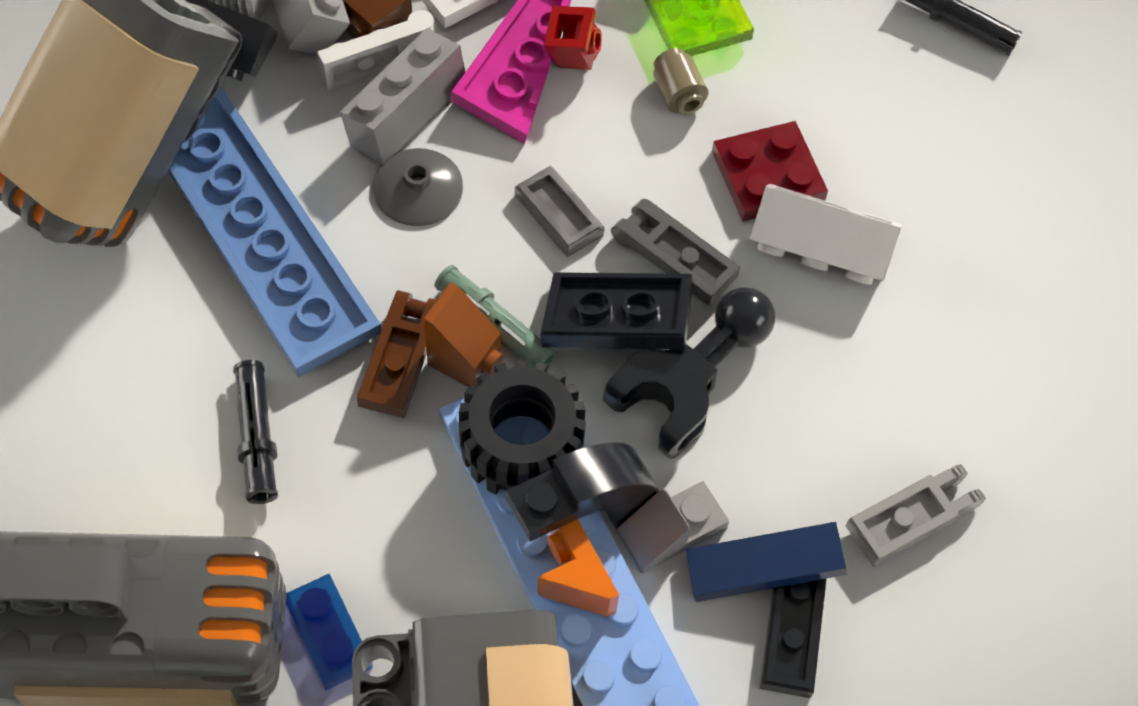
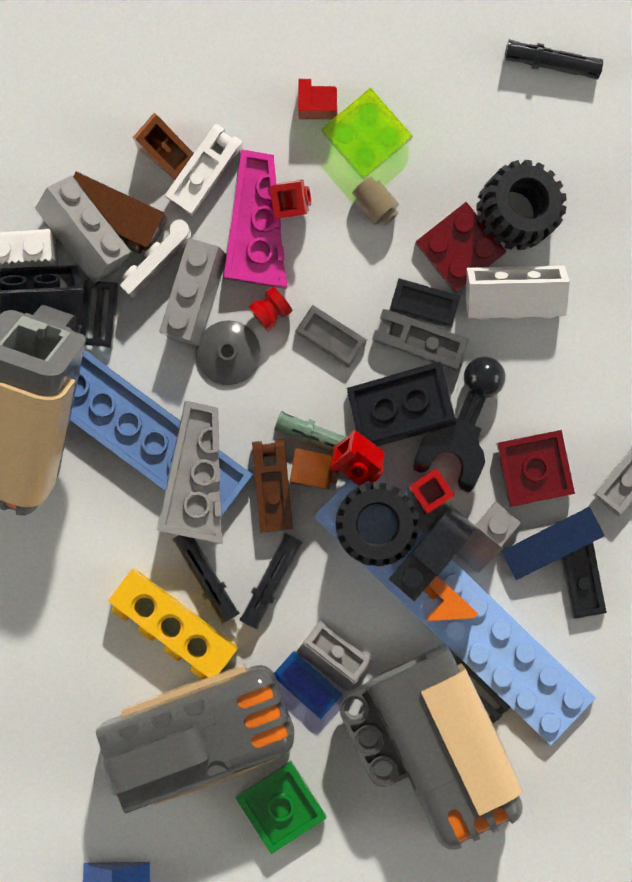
camera: 15 degrees left, 25 degrees up
(151, 408) = (139, 586): none -> yellow brick
(289, 98) = (97, 341): none -> black tile
(295, 298) = (193, 484): none -> light grey wing
(333, 475) = (253, 616): none -> black pin
(377, 597) = (333, 656): none -> light grey slope
(494, 148) = (268, 310): none -> red wheel
(538, 331) = (358, 459): none -> red brick
(616, 418) = (430, 491): none -> red brick
(701, 213) = (424, 303): none -> black tile
(775, 458) = (535, 468): none -> dark red plate
(866, 137) = (540, 191): none -> black tyre

